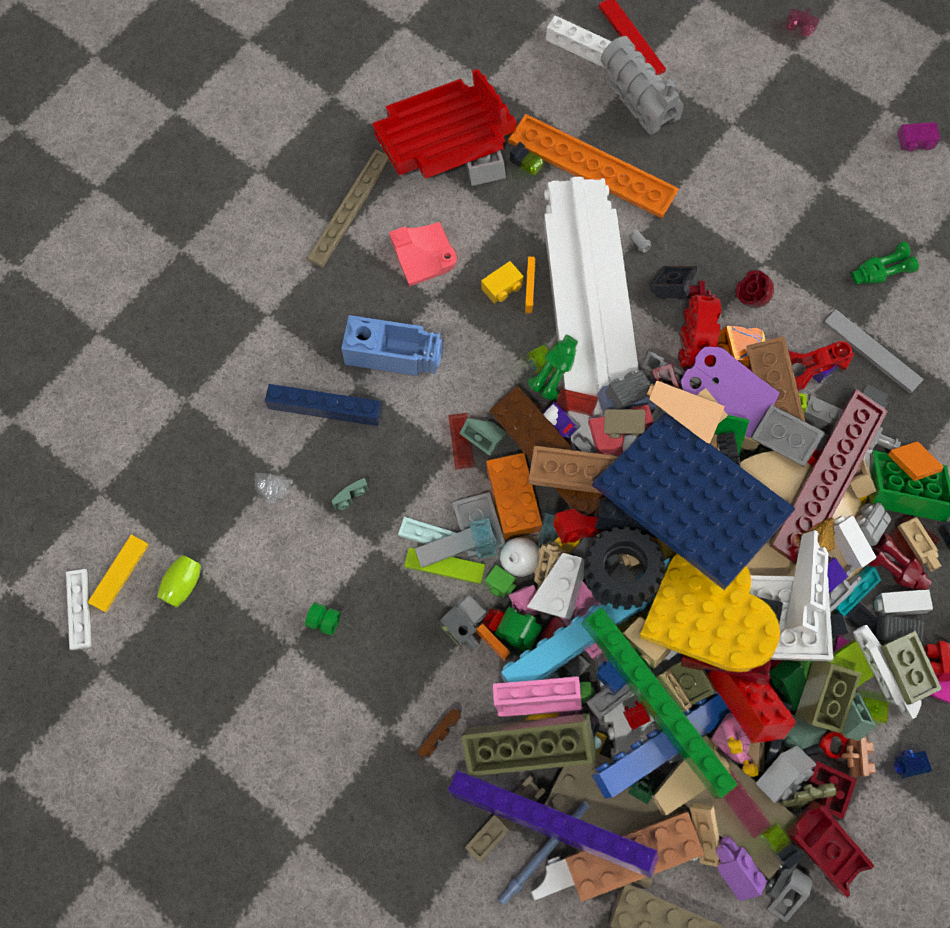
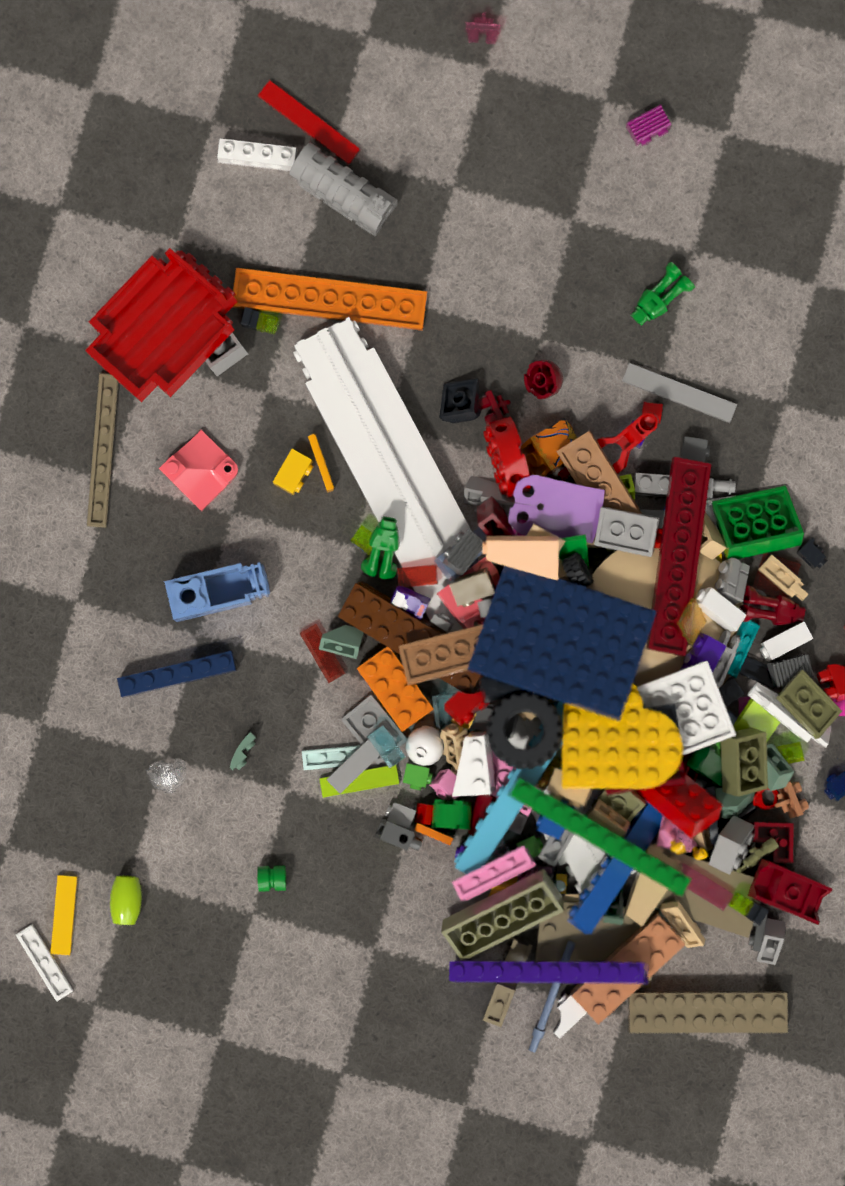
camera: 25 degrees left, 15 degrees up
(439, 733) = (421, 933): reddish brown hinge -> none
(636, 715) = (584, 852): red tile -> none
(643, 244) = (410, 366): light grey pin -> none
(739, 870) = (720, 941): medium lavender hinge -> none
(808, 586) = (692, 676): white wedge -> none
(916, 461) = (754, 496): orange tile -> none

